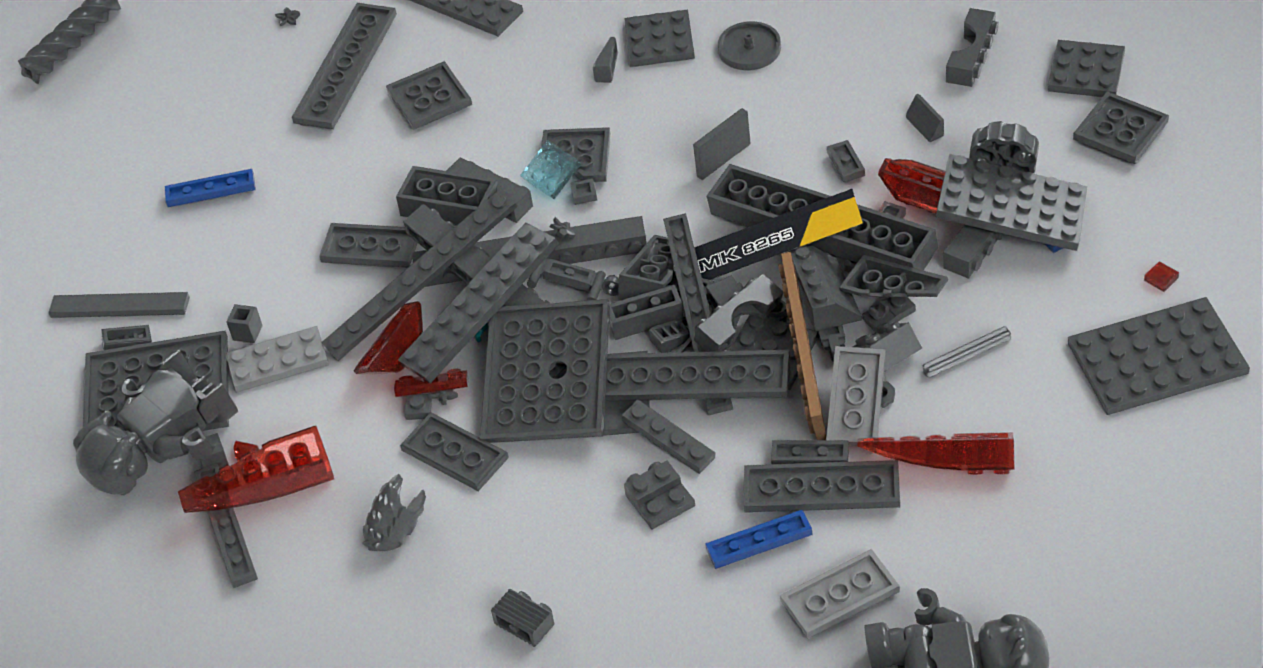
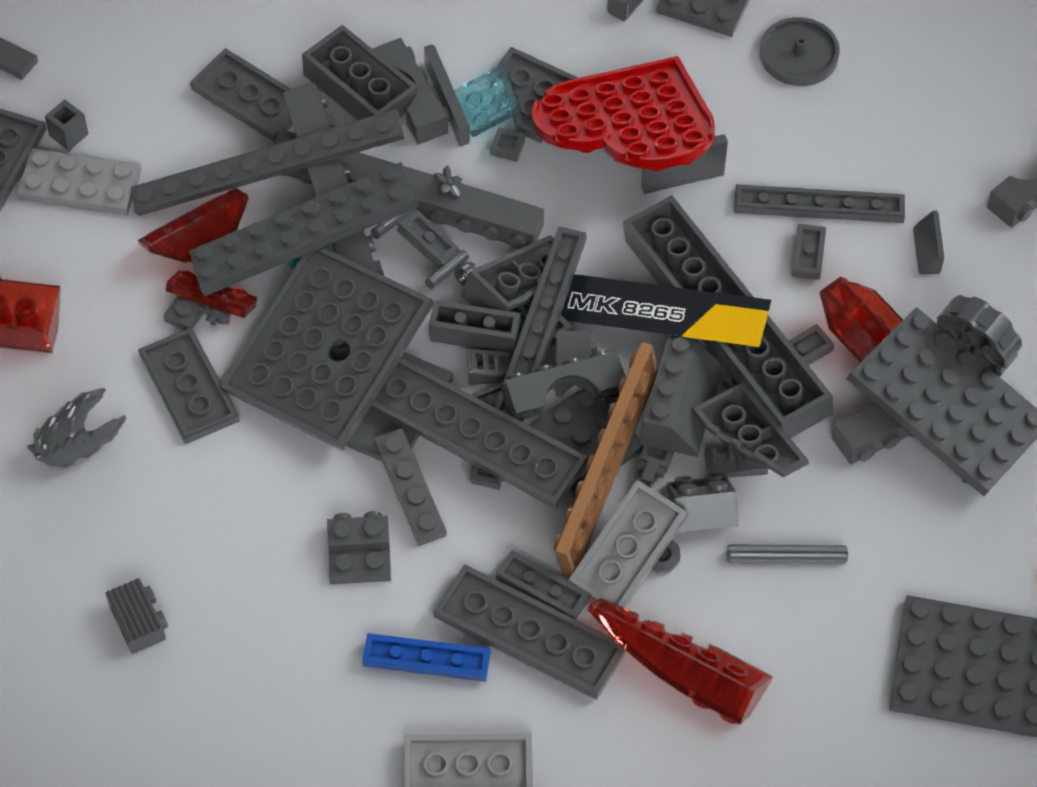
camera: 20 degrees right, 10 degrees up
(539, 193) = (446, 94): none -> dark grey tile
(667, 122) = (637, 113): none -> red plate
(830, 130) = (819, 203): none -> dark grey tile

